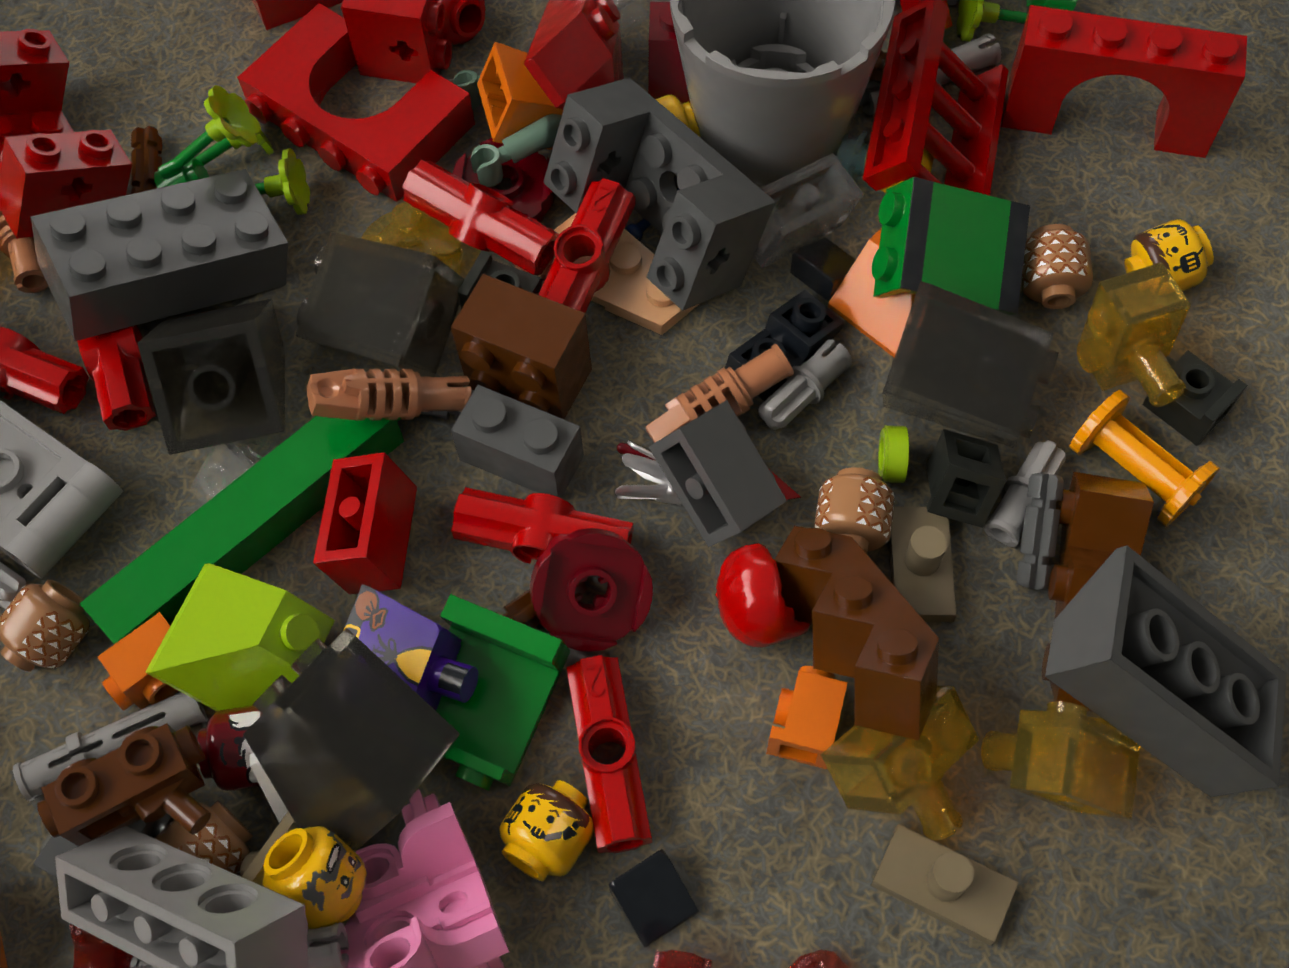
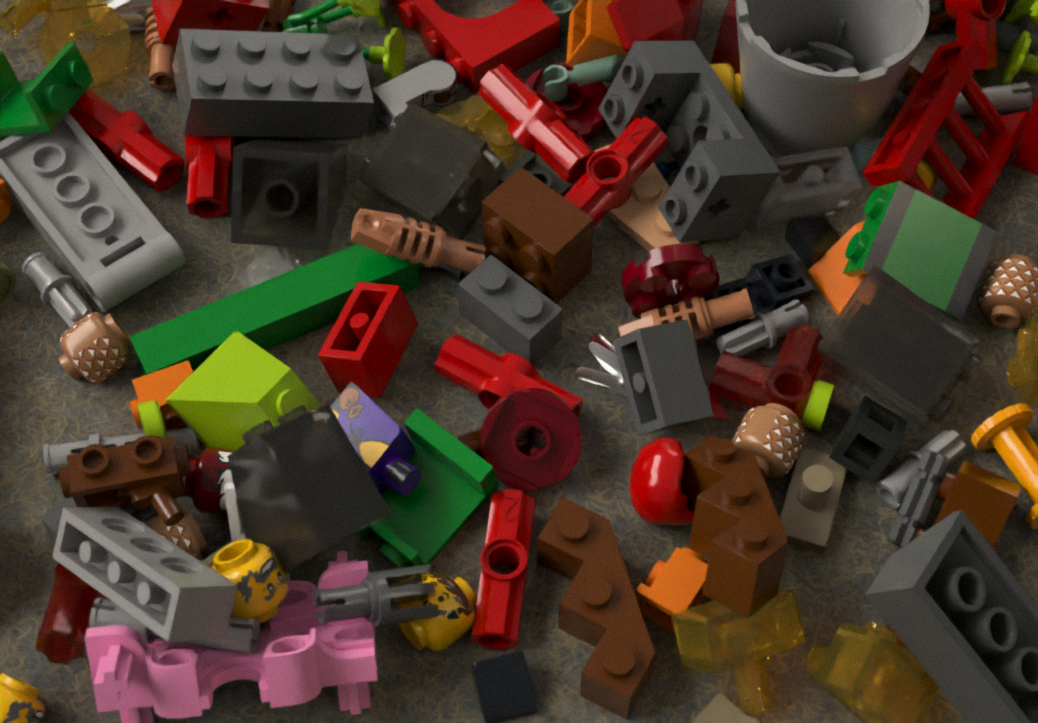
camera: 15 degrees right, 5 degrees down
(138, 704) = (151, 419): none -> lime tile
(341, 207) = (427, 86): none -> light grey leg
(474, 851) = (375, 598): none -> dark grey arm
(689, 354) = (669, 276): none -> dark red plate
(733, 764) = (598, 606): none -> reddish brown brick
(822, 448) = (761, 384): none -> clear red piece

